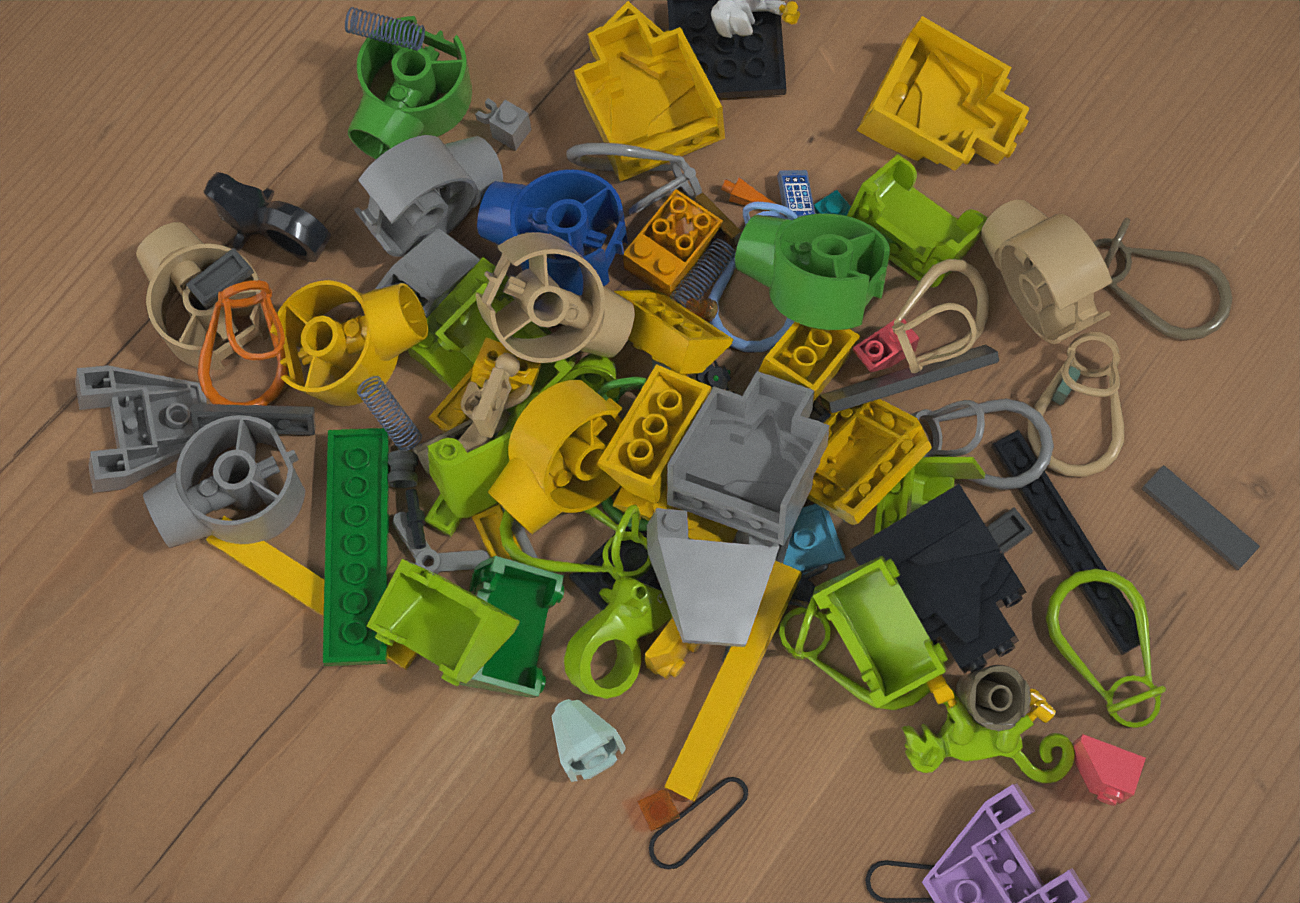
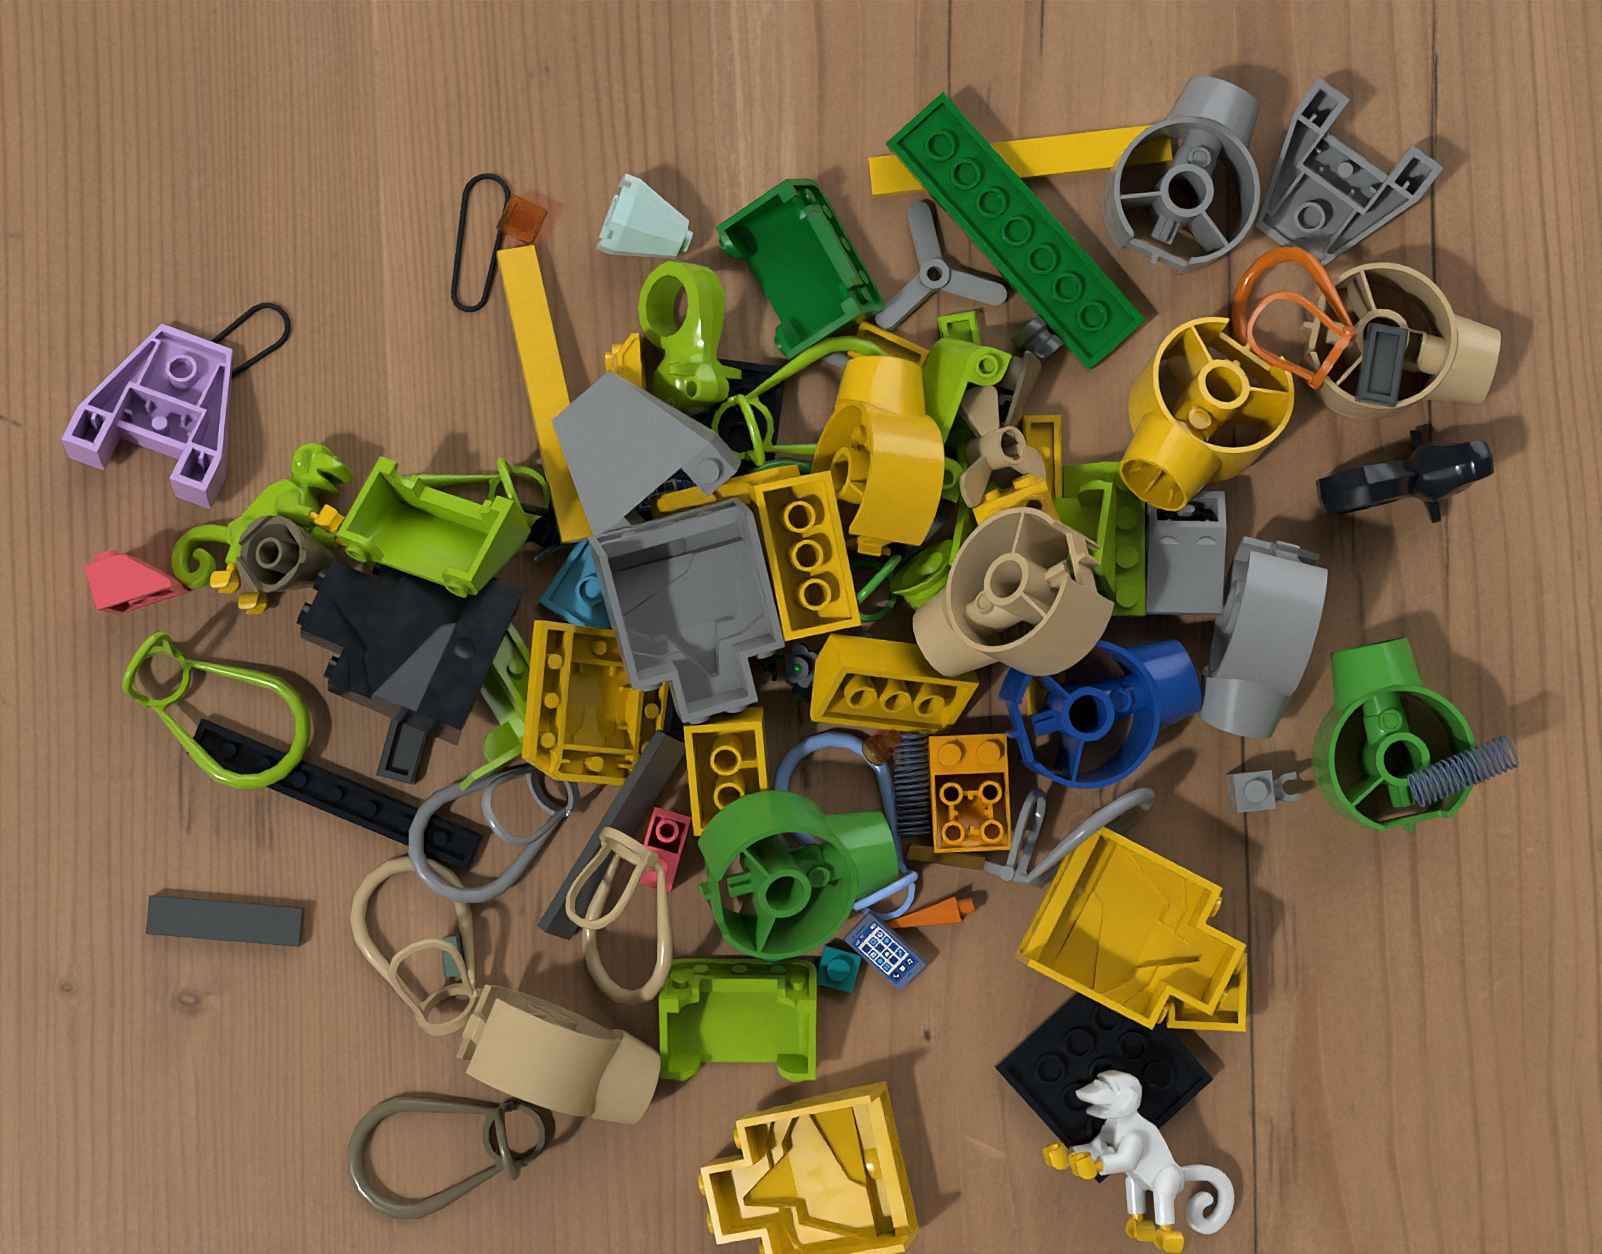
camera: 140 degrees right, 15 degrees up
(285, 419) = (1227, 269): dark grey tile -> none
(376, 387) = (1094, 391): sand blue piece -> none
(415, 519) = (982, 303): black bar -> none
(440, 622) = (856, 213): lime windscreen -> none
(495, 394) = (992, 461): tan plate -> none

